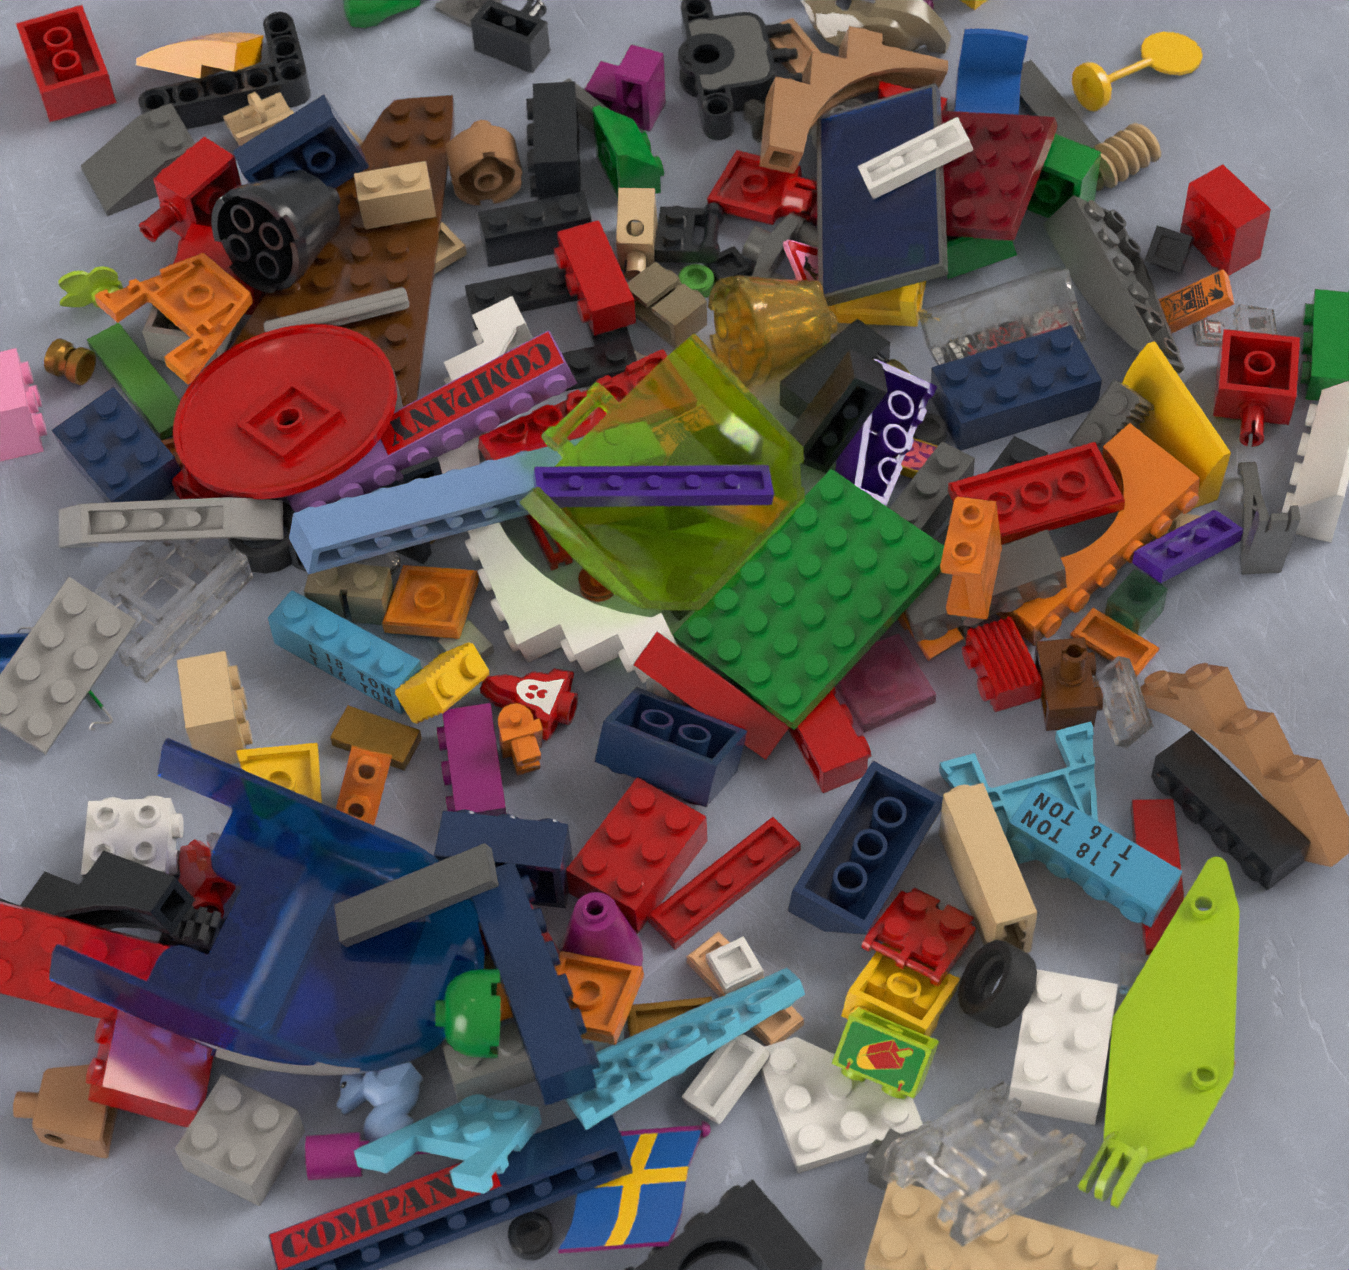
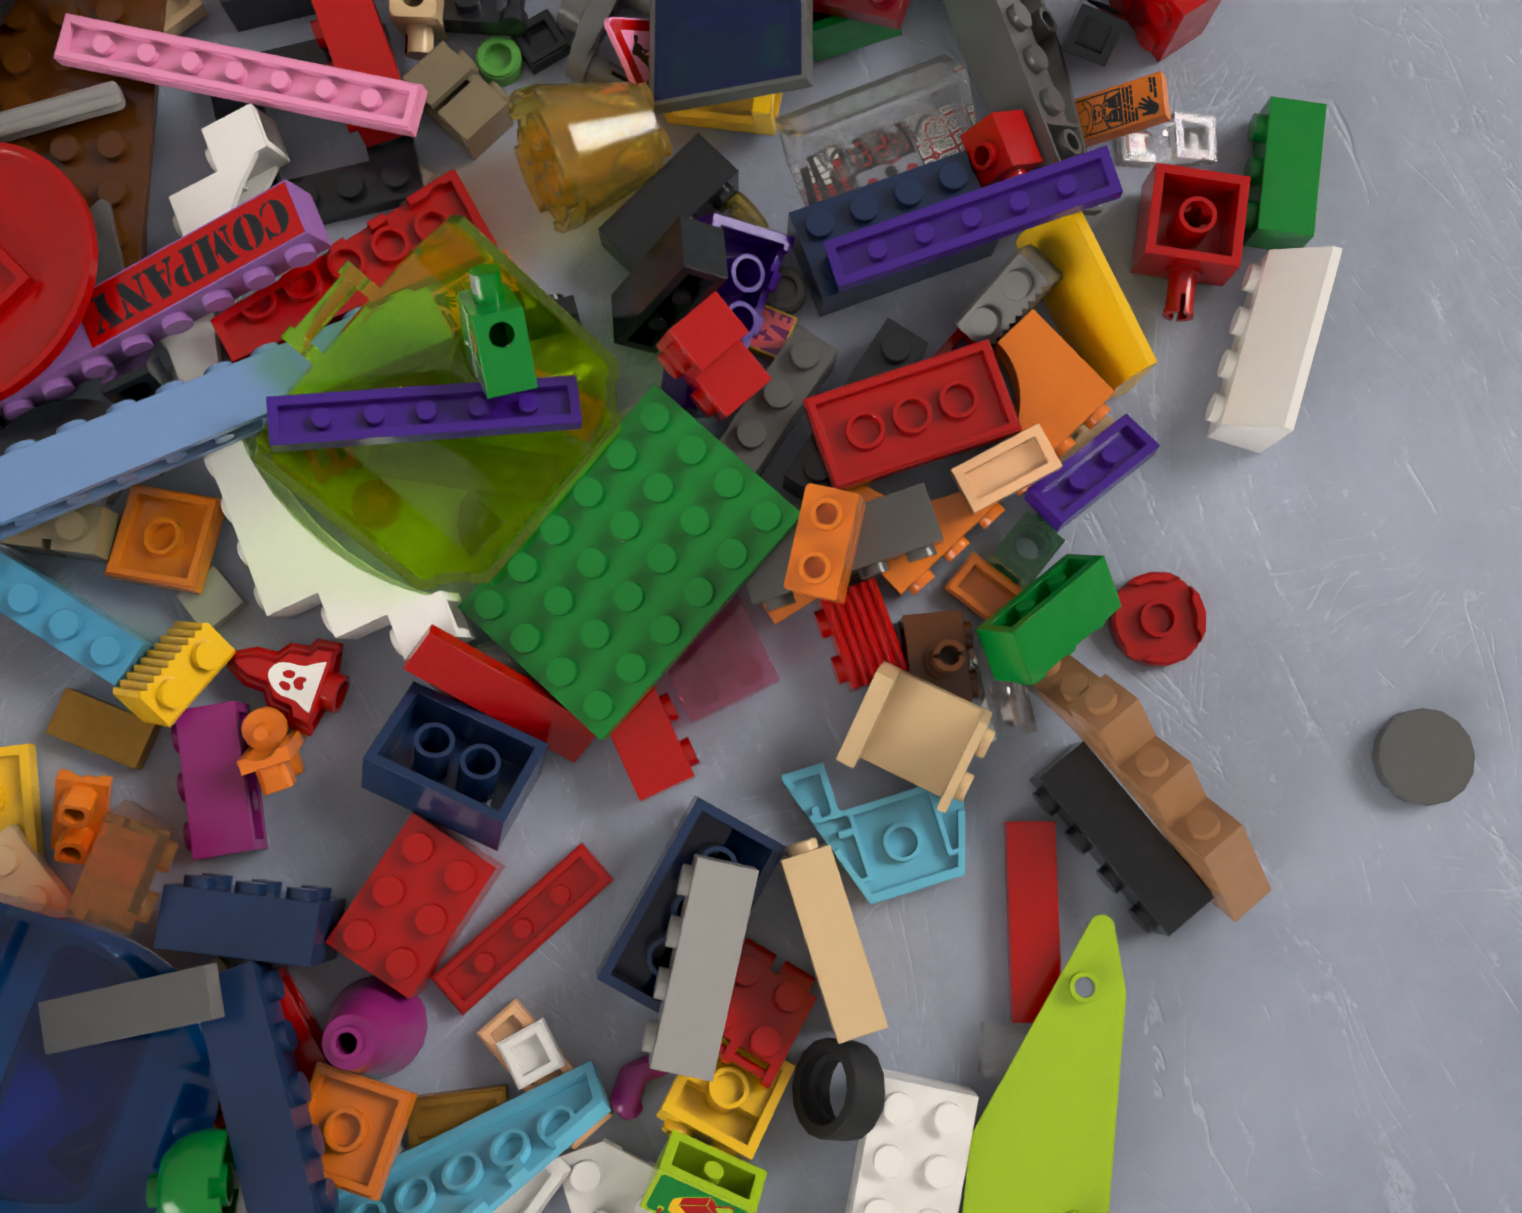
camera: 10 degrees left, 25 degrees up
(414, 792) = (123, 867): none -> clear orange slope
(503, 279) = (241, 75): none -> bright pink tile
(708, 427) = (495, 334): none -> green torso
(821, 992) = (630, 1085): none -> magenta arm
(873, 448) = (712, 358): none -> red brick
(880, 874) = (702, 967): none -> light grey brick
(1050, 721) = (918, 733): none -> tan panel
(1076, 359) = (973, 219): none -> dark purple plate
(1092, 856) = (957, 919): dark azure brick -> none
(1099, 323) = (1001, 147): none -> red brick
(1114, 531) = (1005, 469): none -> light nougat tile
(1157, 640) = (1049, 618): none -> green brick
(1254, 656) = (1158, 619): none -> red tile
(1264, 538) = (1176, 462): dark grey hinge -> none

